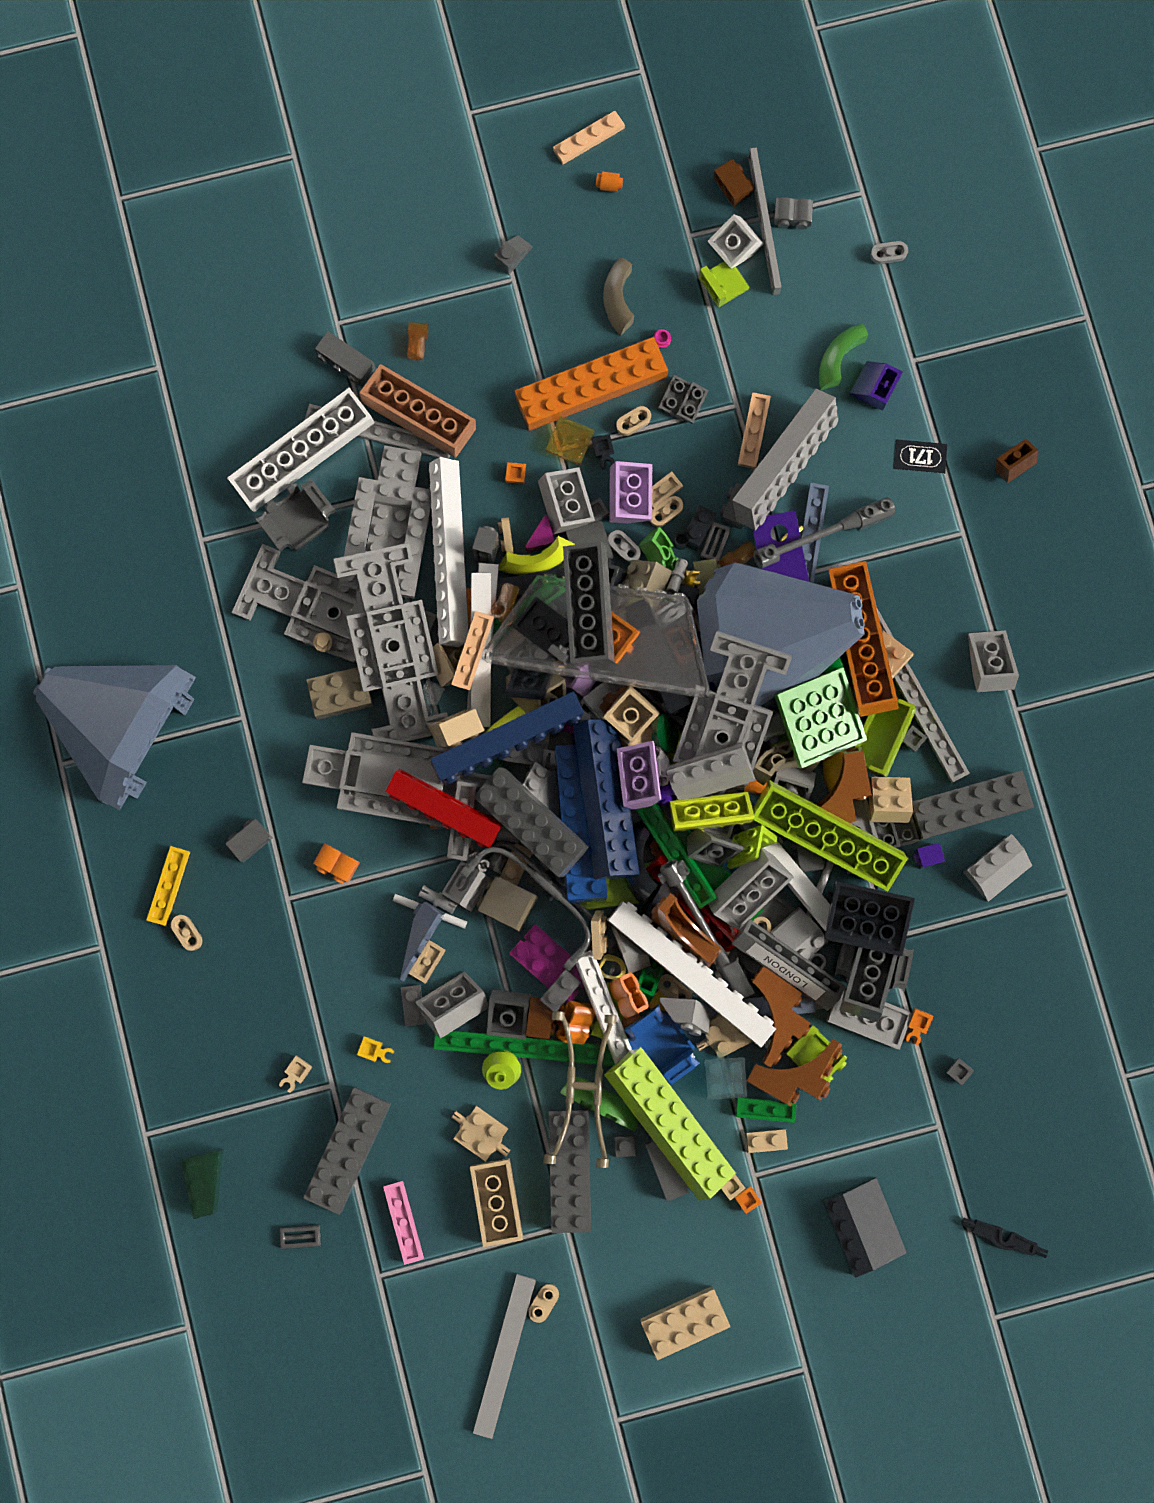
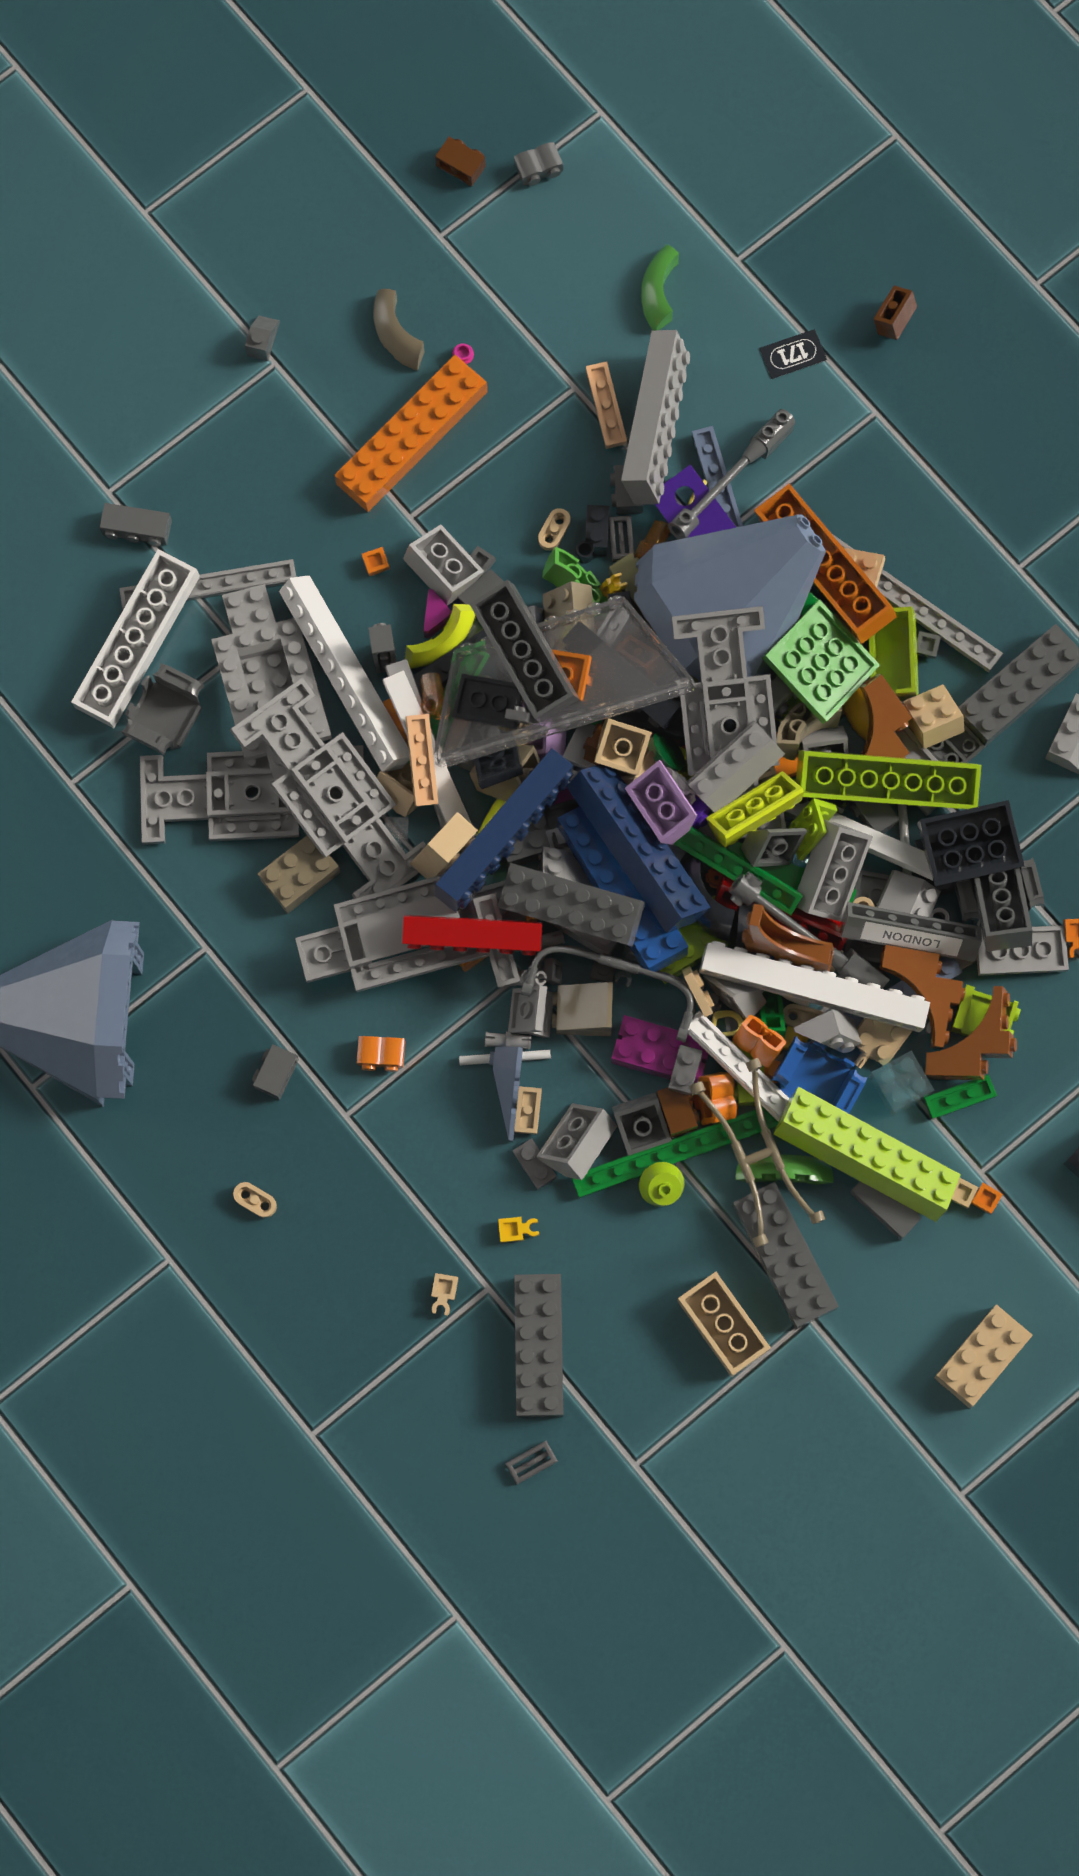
camera: 20 degrees left, 5 degrees down
(168, 886) = (211, 1160): yellow plate -> none
(203, 1181) = (399, 1450): clear green wedge -> none
(323, 642) = (255, 827): tan plate -> none
(403, 1222) = (635, 1394): bright pink plate -> none
(417, 336) = (202, 467): clear orange piece -> none
(418, 411) = (241, 542): nougat brick -> none
(480, 1133) = (672, 1263): tan plate -> none
(504, 527) = (402, 637): tan plate -> none
(504, 1356) = (809, 1483): light grey tile -> none
(512, 871) = (573, 967): tan plate -> none
(543, 1303) = (824, 1408): tan plate -> none
(570, 440) = (417, 502): clear yellow plate -> none
(588, 137) = (284, 182): light nougat plate -> none
(603, 448) = (457, 494): black plate -> none
(609, 181) = (329, 217): orange brick -> none
(624, 547) = (529, 584): light grey plate -> none
(624, 1146) = (830, 1205): dark grey plate -> none
(630, 492) = (507, 525): lavender slope -> none
(632, 420) = (473, 452): tan plate -> none
(665, 488) = (539, 509): tan plate -> none
(677, 576) = (599, 587): light grey pin -> none
(682, 399) = (515, 407): dark grey slope -> none
(723, 283) = (499, 267): lime bracket -> none
(735, 241) = (492, 220): white slope -> none
(764, 221) = (513, 186): light grey tile -> none
(766, 1140) = (976, 1129): tan plate -> none
(876, 383) = (711, 299): dark purple slope -> none
(888, 252) = (657, 160): light grey plate -> none
(928, 855) = (1002, 757): dark purple brick -> none
(992, 661) = (970, 529): light grey slope -> none

